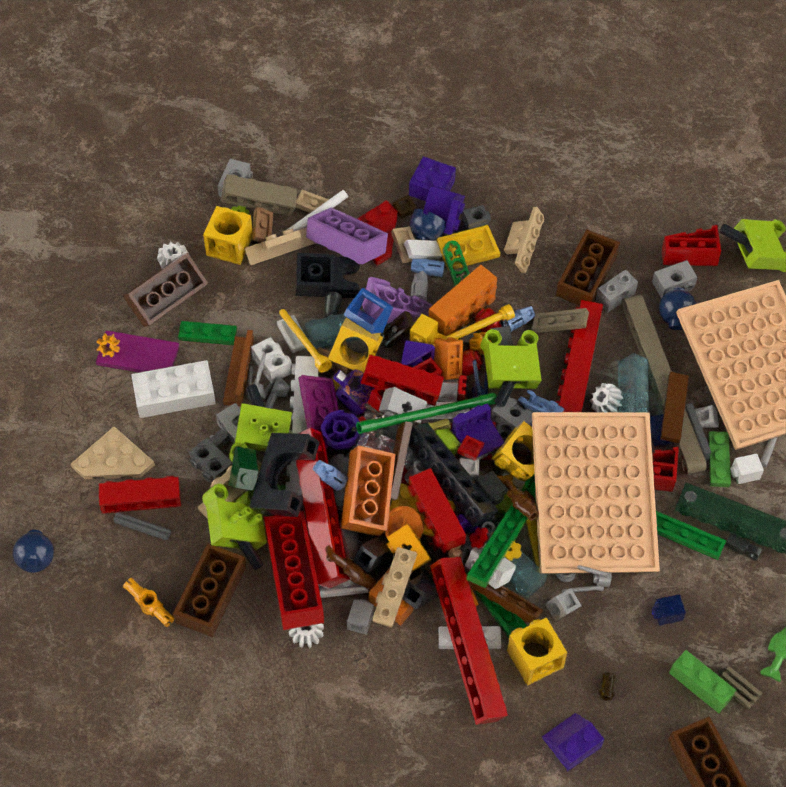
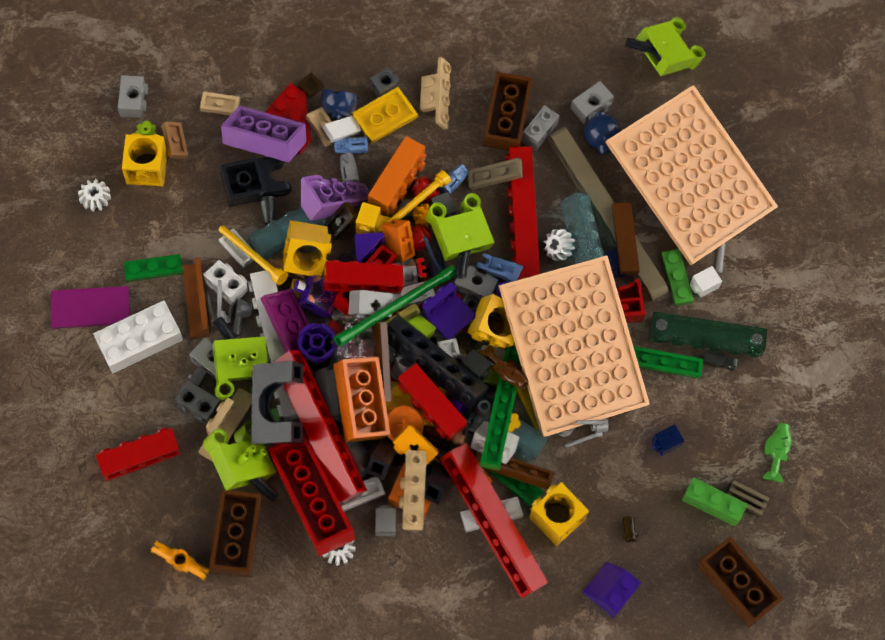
camera: 20 degrees left, 10 degrees up
(33, 551) = (52, 539): dark blue brick -> none
(103, 345) = (60, 307): light orange gear -> none
(112, 458) = (99, 422): tan plate -> none
(142, 525) = (149, 484): dark grey axle -> none
(165, 289) = (99, 234): reddish brown brick -> none
(244, 469) = (235, 407): dark green slope -> none
(260, 194) = (162, 109): dark tan brick -> none
(277, 246) = (196, 158): tan bracket -> none
(327, 474) = (321, 393): medium blue hinge -> none
(335, 200) = (216, 126): white piece -> none
(350, 568) = (367, 481): reddish brown animal -> none
(364, 320) = (308, 222): blue tile -> none
(430, 174) = (330, 52): dark purple brick -> none
(446, 205) = (352, 78): dark purple bracket -> none
(448, 255) = (369, 130): green beam -> none
(470, 448) = (446, 329): red tile -> none
(479, 538) = (478, 418): red plant -> none
(563, 604) = (570, 461): light grey brick -> none
(698, 248) = (604, 65): red wedge -> none
(698, 431) = (652, 255): dark grey tile -> none
(708, 416) = (655, 238): white slope -> none

